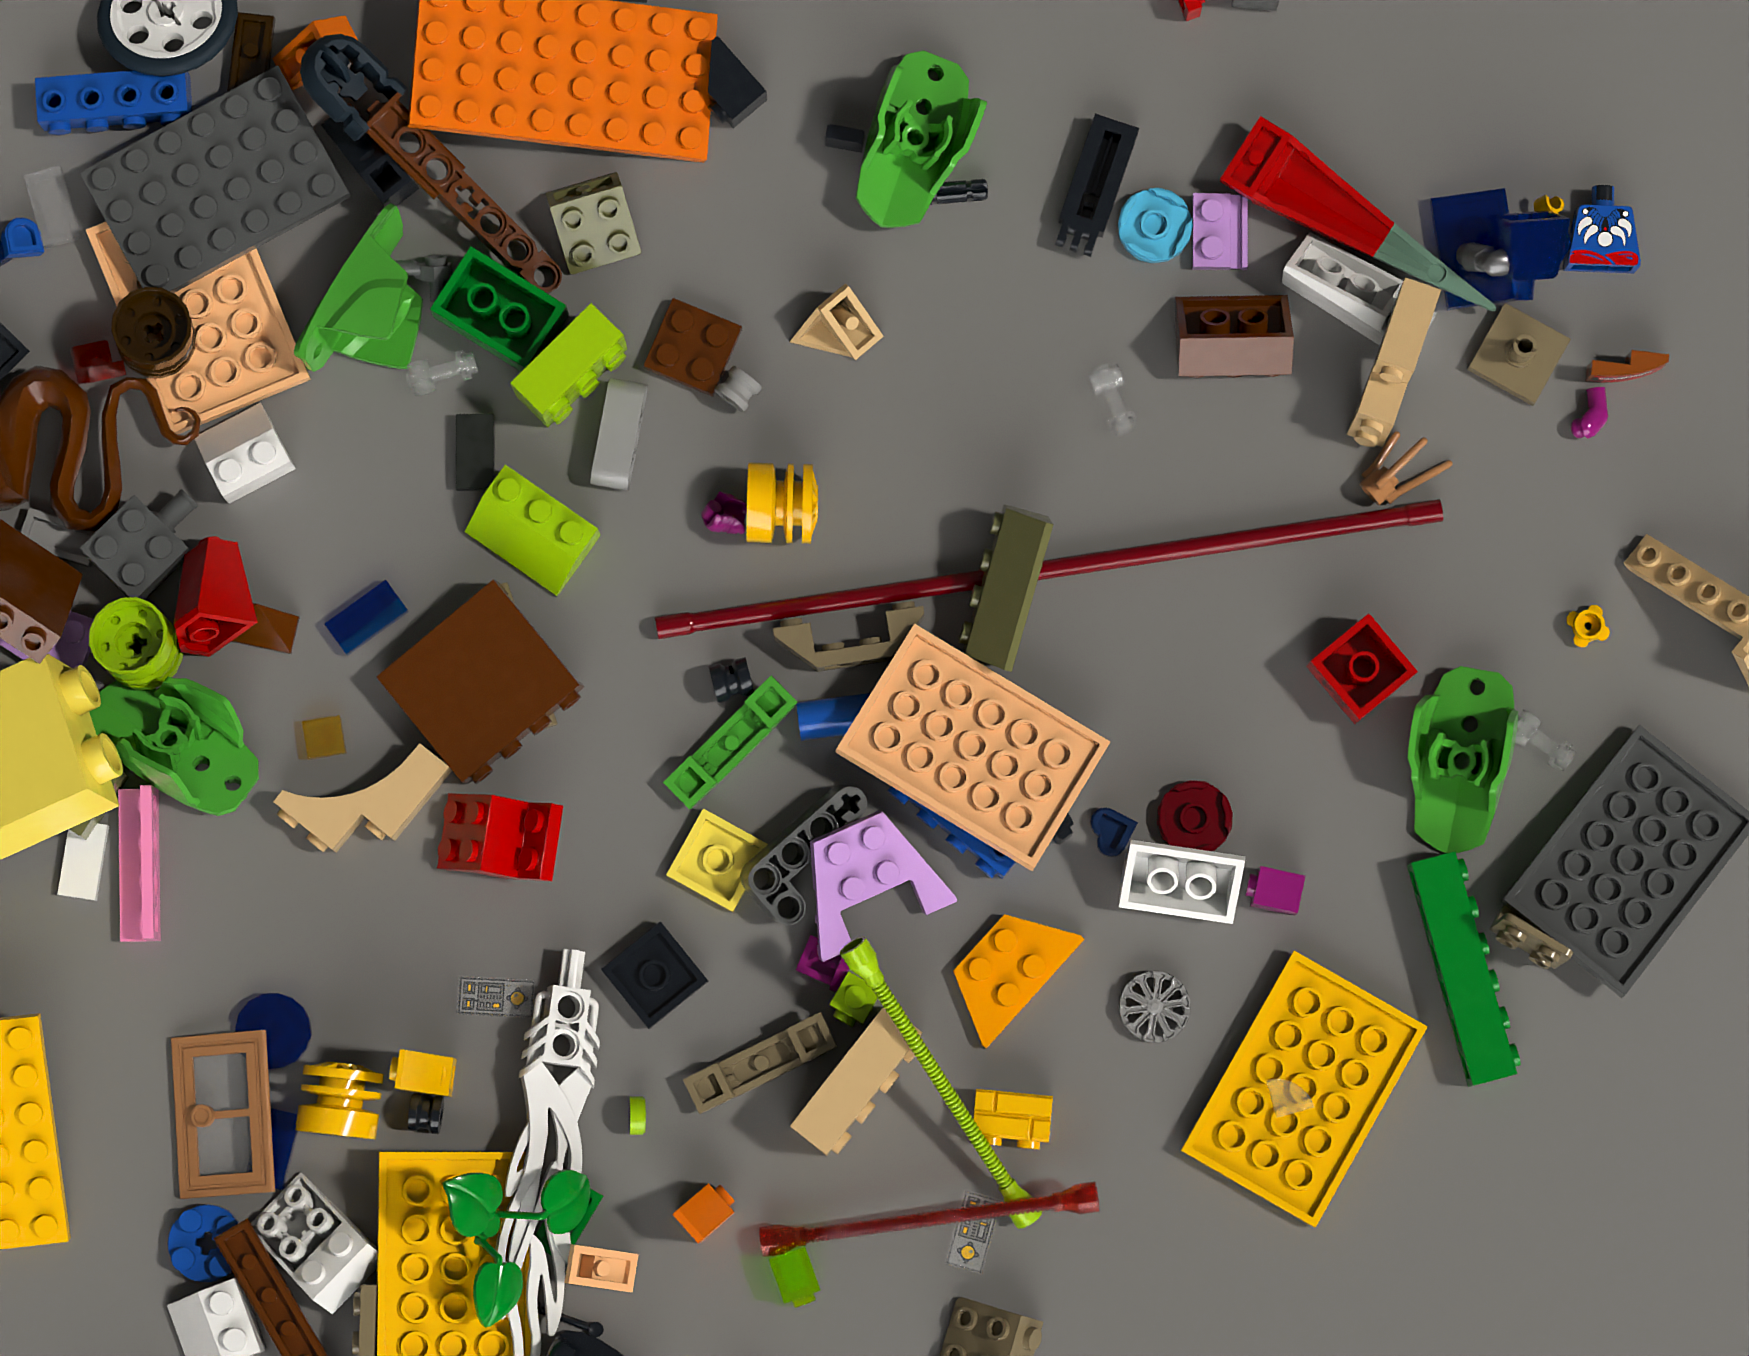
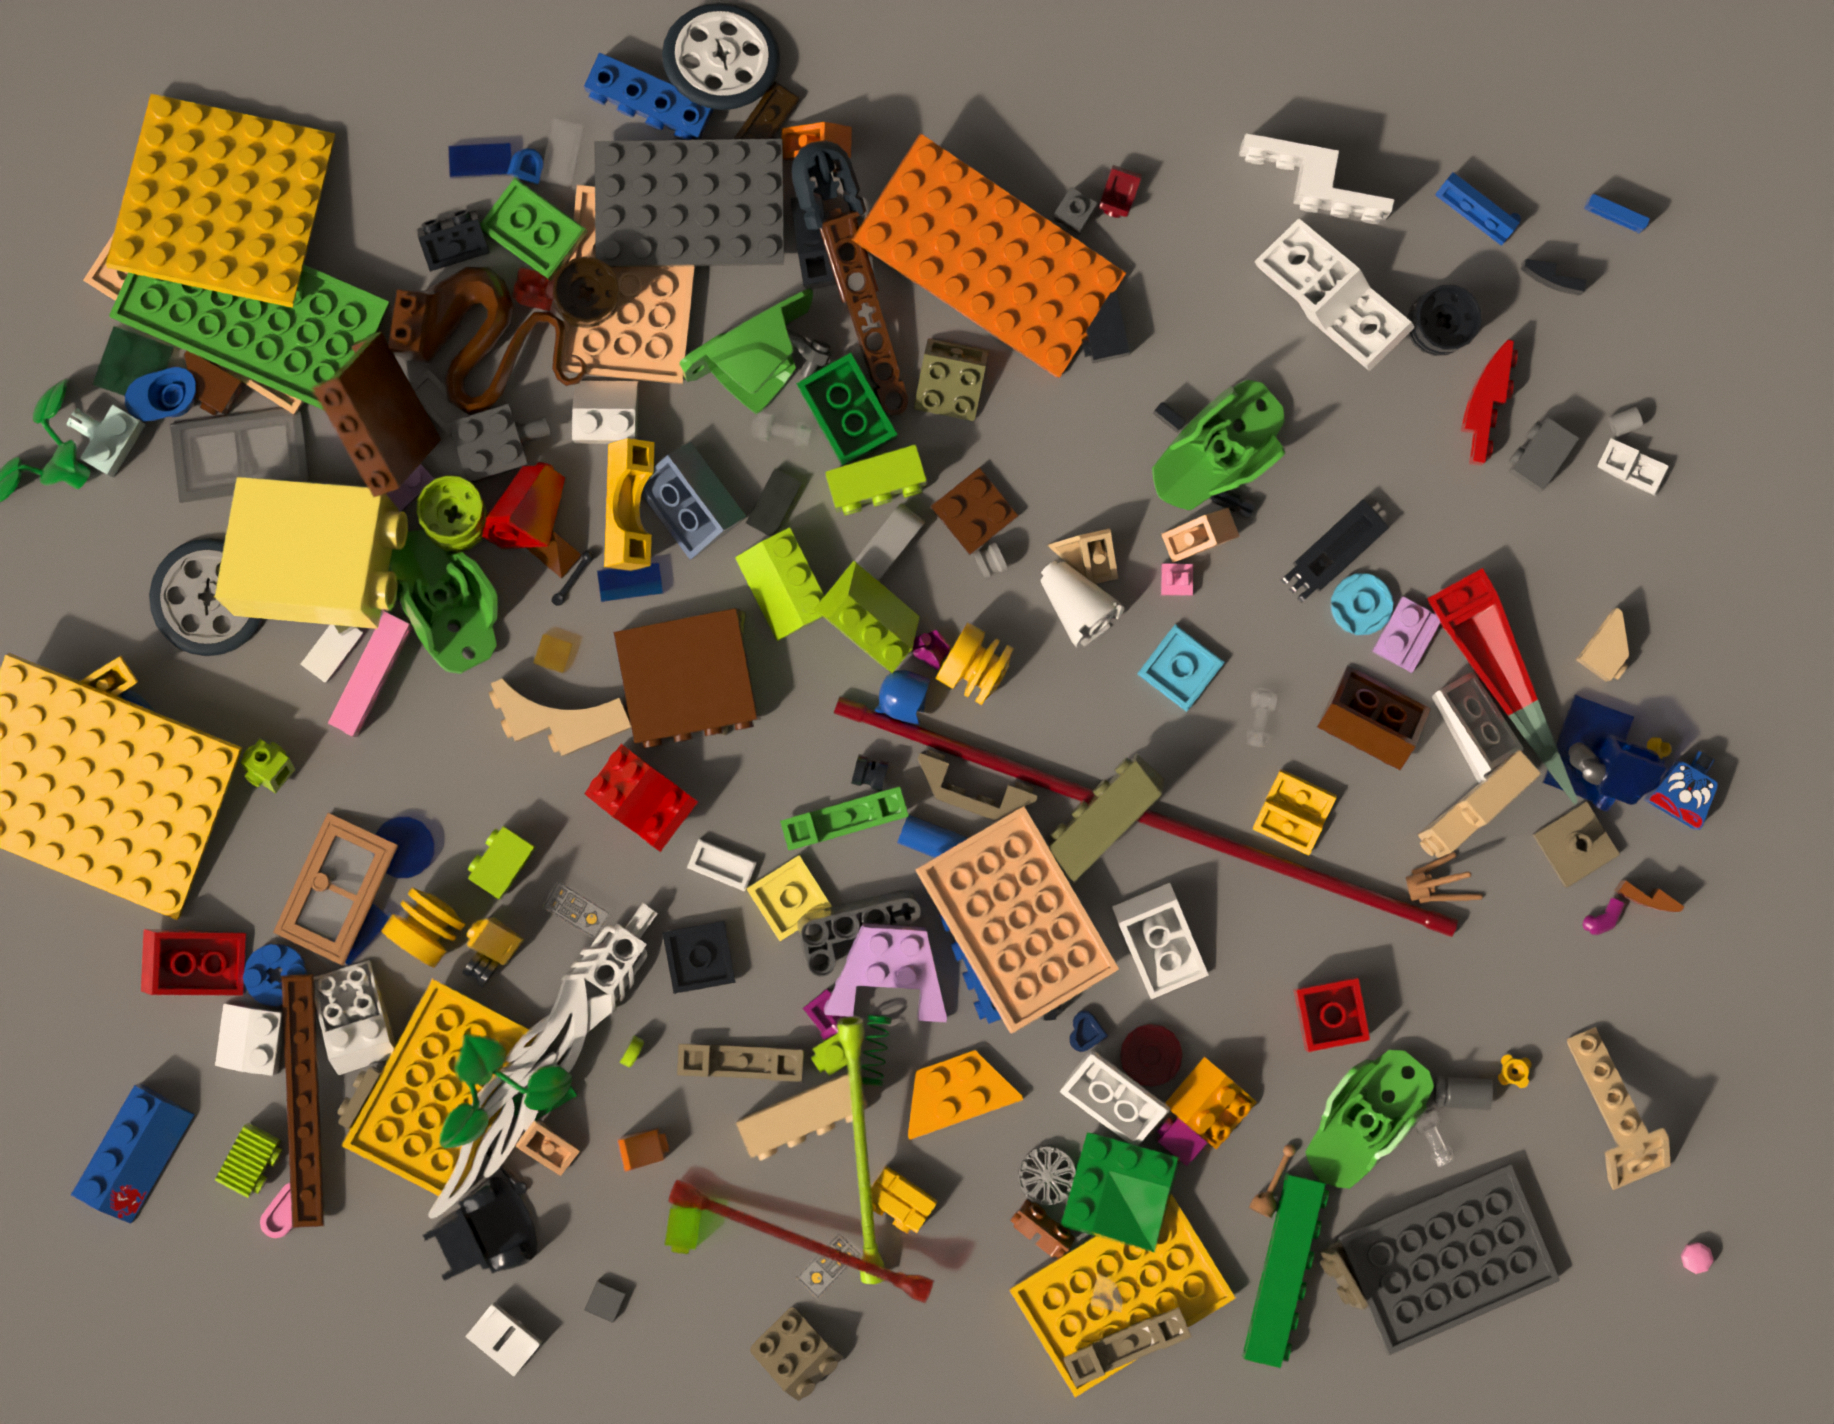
camera: 25 degrees right, 5 degrees up
(63, 300) = (533, 229): none -> bright green tile
(78, 1021) = (267, 765): none -> lime brick
(109, 1277) = (192, 962): none -> red slope
(299, 677) = (558, 599): none -> black hinge
(300, 497) = (627, 473): none -> yellow arch
(383, 495) = (691, 500): none -> sand blue slope
(386, 987) = (501, 861): none -> lime brick
(626, 864) = (721, 865): none -> white tile
(642, 513) = (870, 616): none -> lime slope
(722, 578) = (903, 695): none -> blue helmet
(857, 381) = (1079, 603): none -> white cone
(879, 938) = (881, 1020): none -> green piece
(945, 242) = (1200, 535): none -> light nougat slope
(946, 303) = (1176, 579): none -> bright pink tile
(1001, 394) = (1180, 668): none -> medium azure tile
(1137, 690) = (1160, 941): none -> white slope
(1199, 1067) = (1054, 1237): none -> dark orange hinge
(1204, 479) = (1294, 812): none -> yellow slope
(1243, 978) = (1120, 1192): none -> green slope
(1286, 832) = (1210, 1103): none -> light orange slope
(1340, 1139) = (1127, 1345): none -> dark tan slope
(1400, 909) = (1264, 1202): none -> medium nougat hinge
(1437, 132) = (1607, 648): none -> tan slope
(1547, 677) = (1463, 1093): none -> dark grey piece

